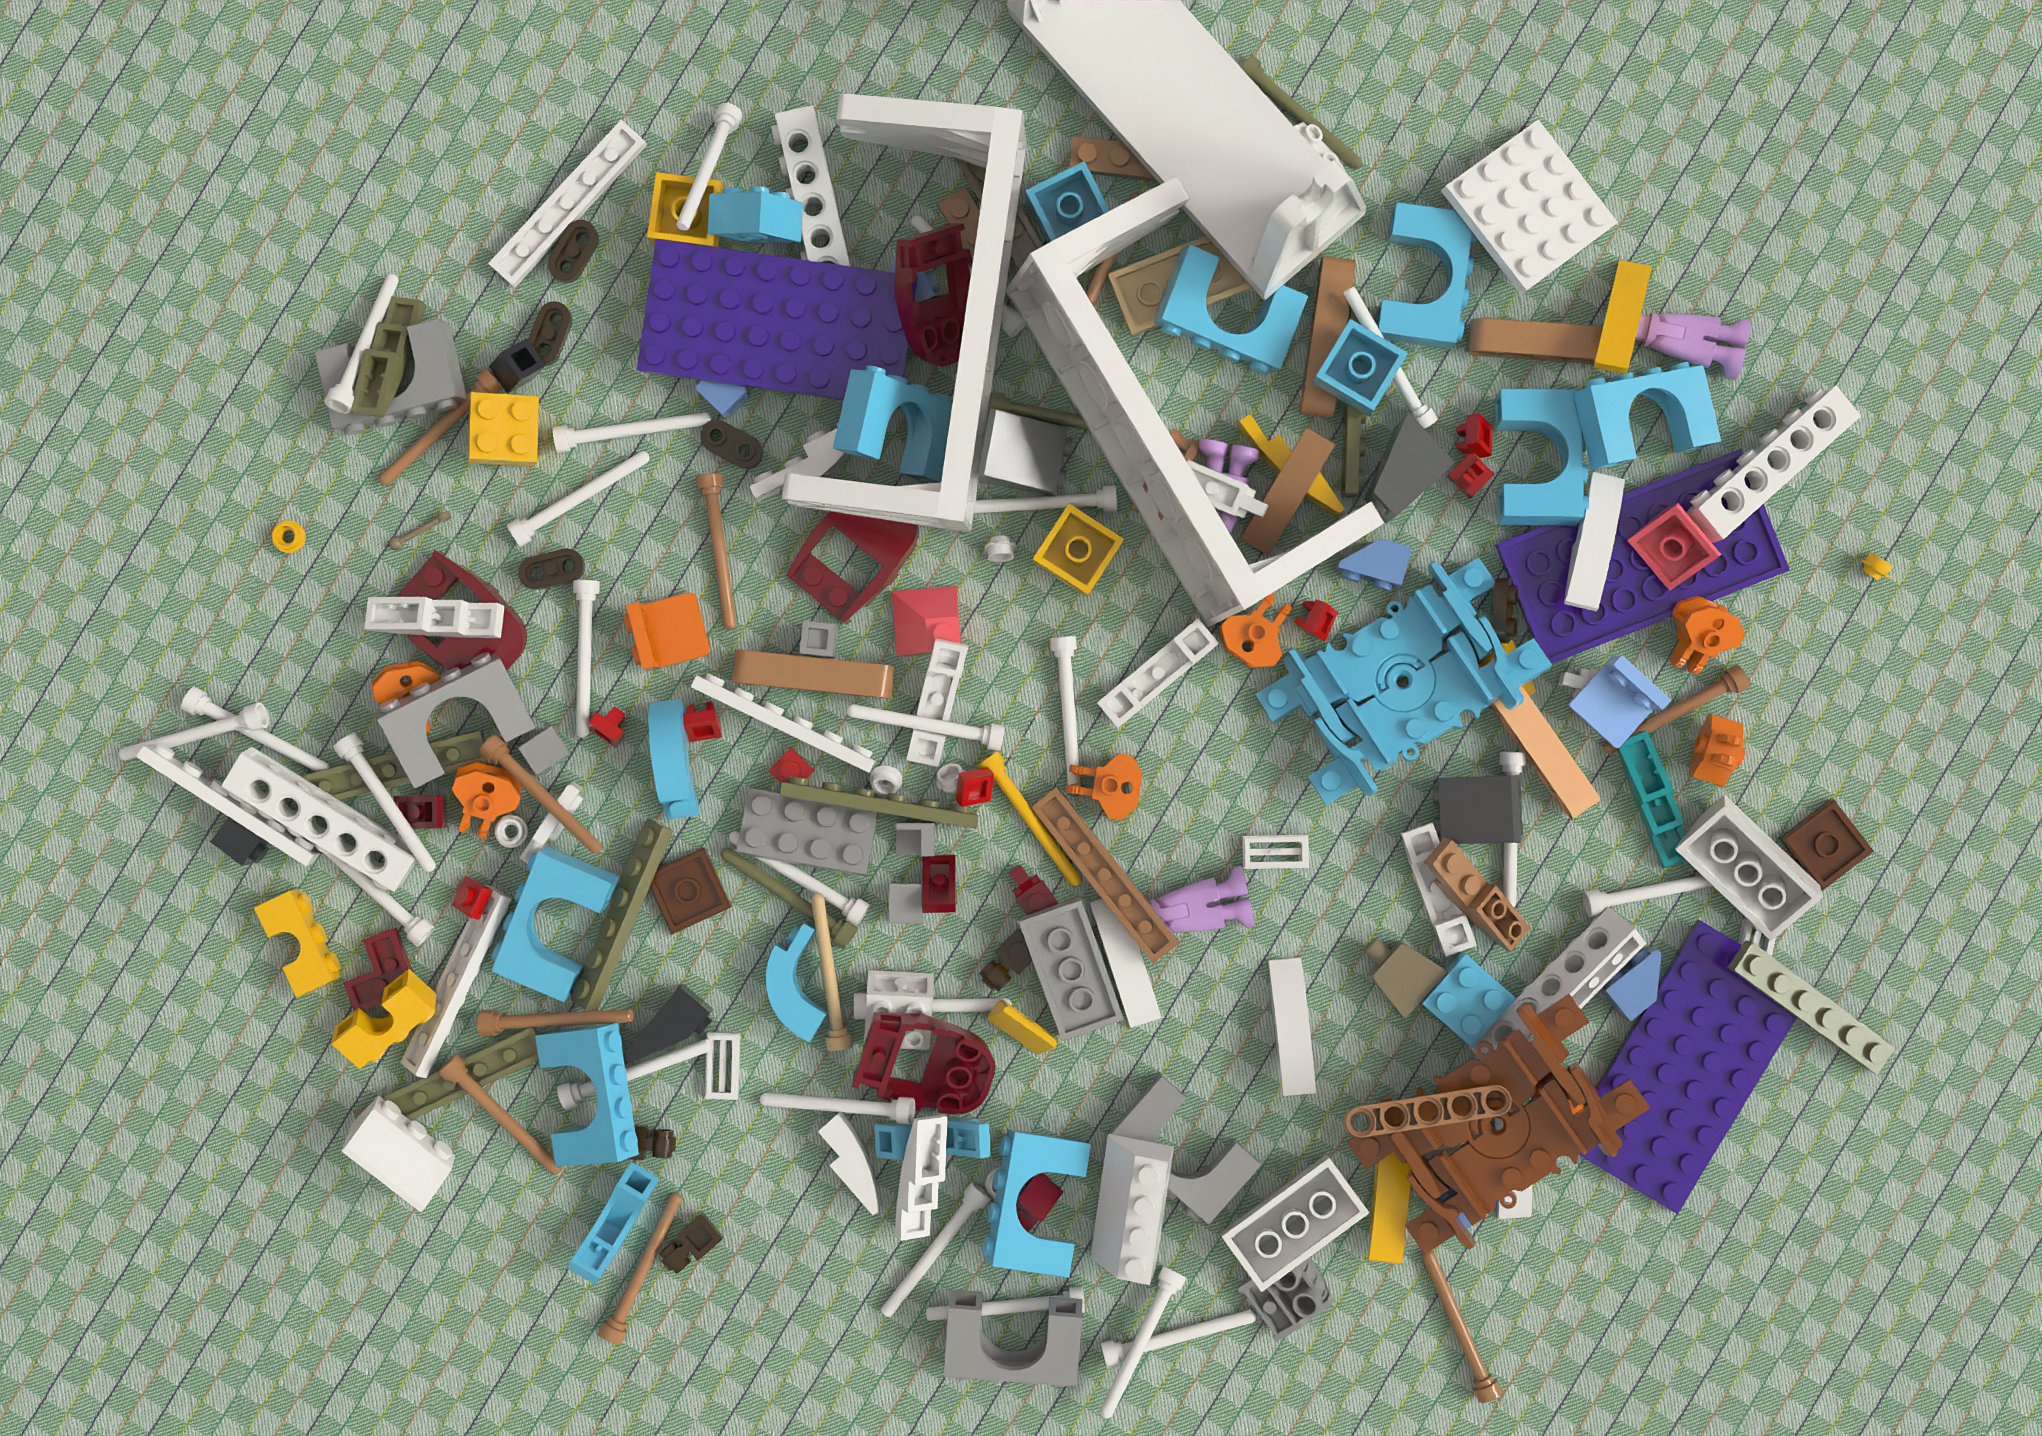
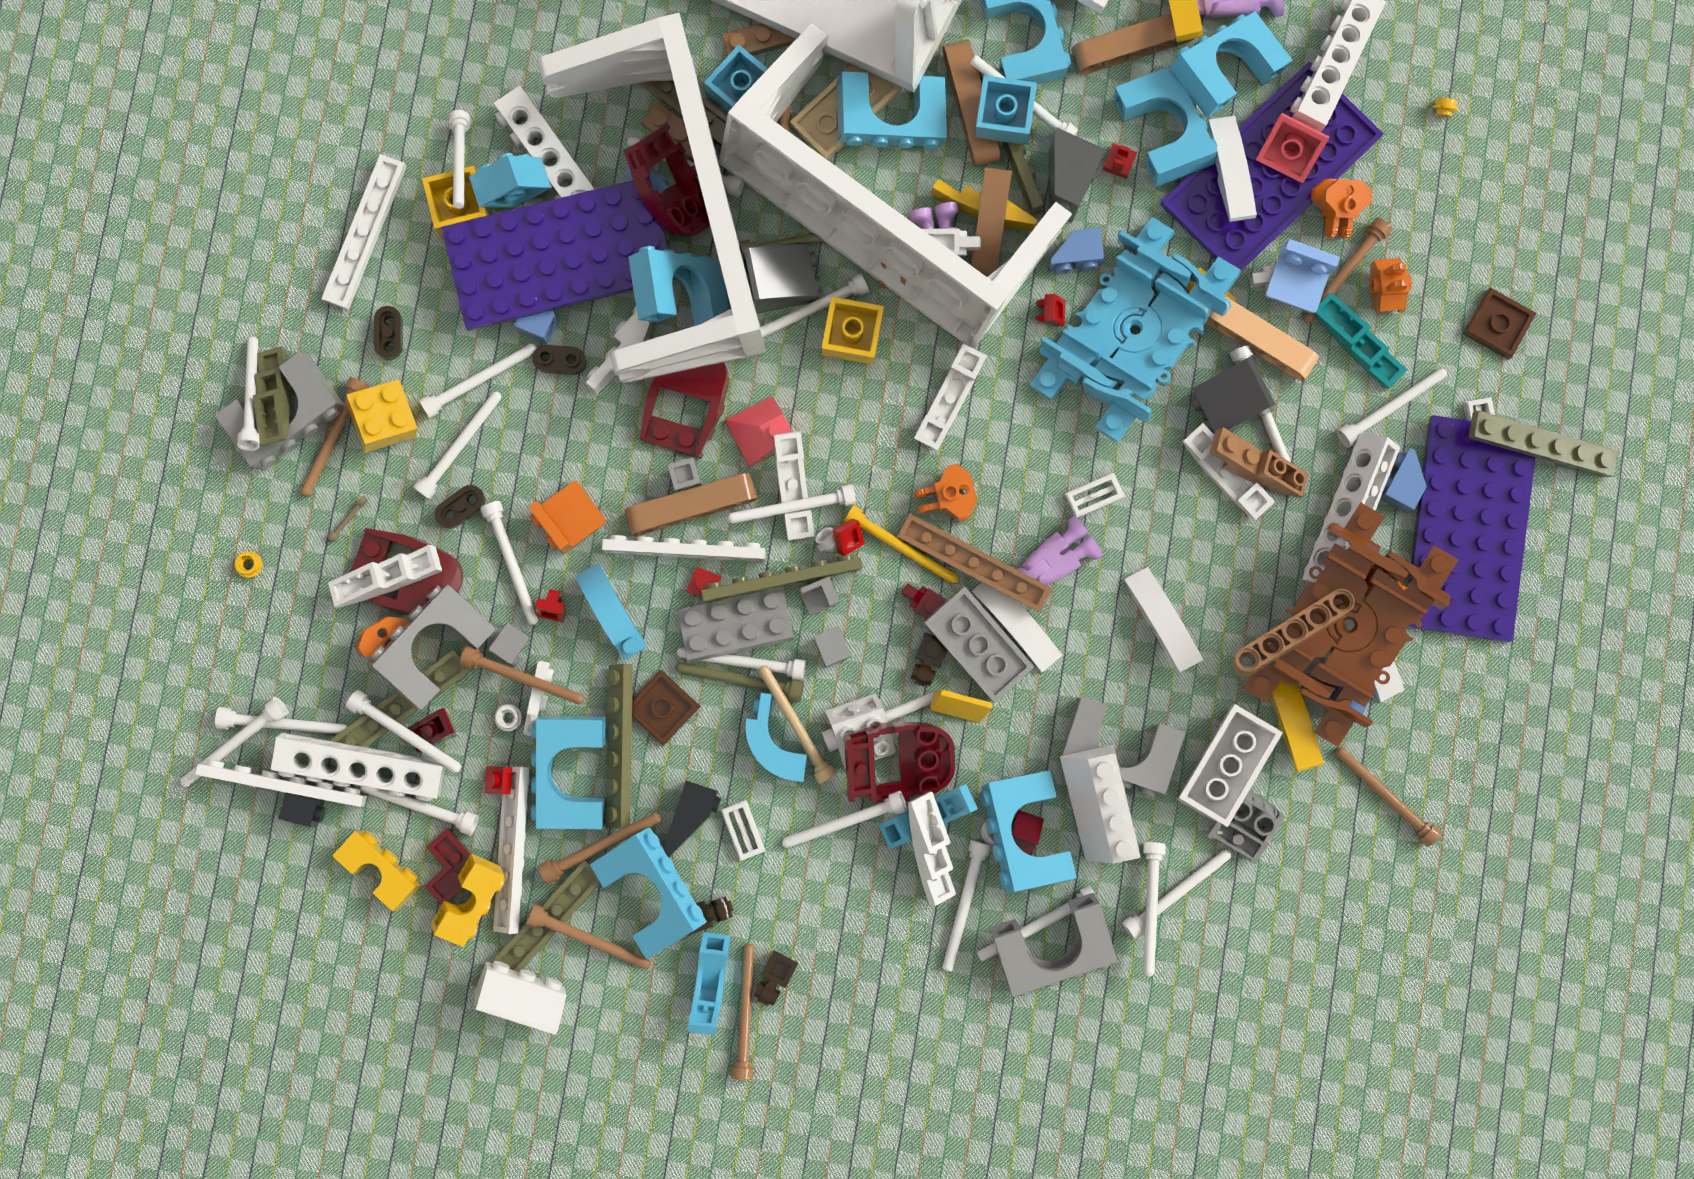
camera: 25 degrees left, 5 degrees down
(484, 794) = (478, 699): orange hinge -> none
(517, 365) = (373, 364): black brick -> none
(571, 251) = (382, 266): dark brown plate -> none
(572, 1093) = (637, 899): white piece -> none
(702, 724) = (622, 576): red tile -> none
(710, 488) = (556, 397): medium nougat piece -> none
(852, 1161) = (873, 861): white slope -> none
(885, 780) = (778, 566): white plate -> none
(939, 884) = (851, 622): dark red slope -> none
(1000, 549) = (793, 355): white plate -> none
(1064, 649) = (872, 410): white piece -> none
(1257, 632) = (1010, 337): orange hinge -> none
(1402, 974) = (1229, 547): dark tan torso -> none
(1467, 999) = (1284, 545): medium azure brick -> none
(1478, 436) = (1113, 130): red tile -> none
(1504, 597) = (1183, 236): dark brown plate -> none
(1749, 868) = (1451, 362): white slope -> none

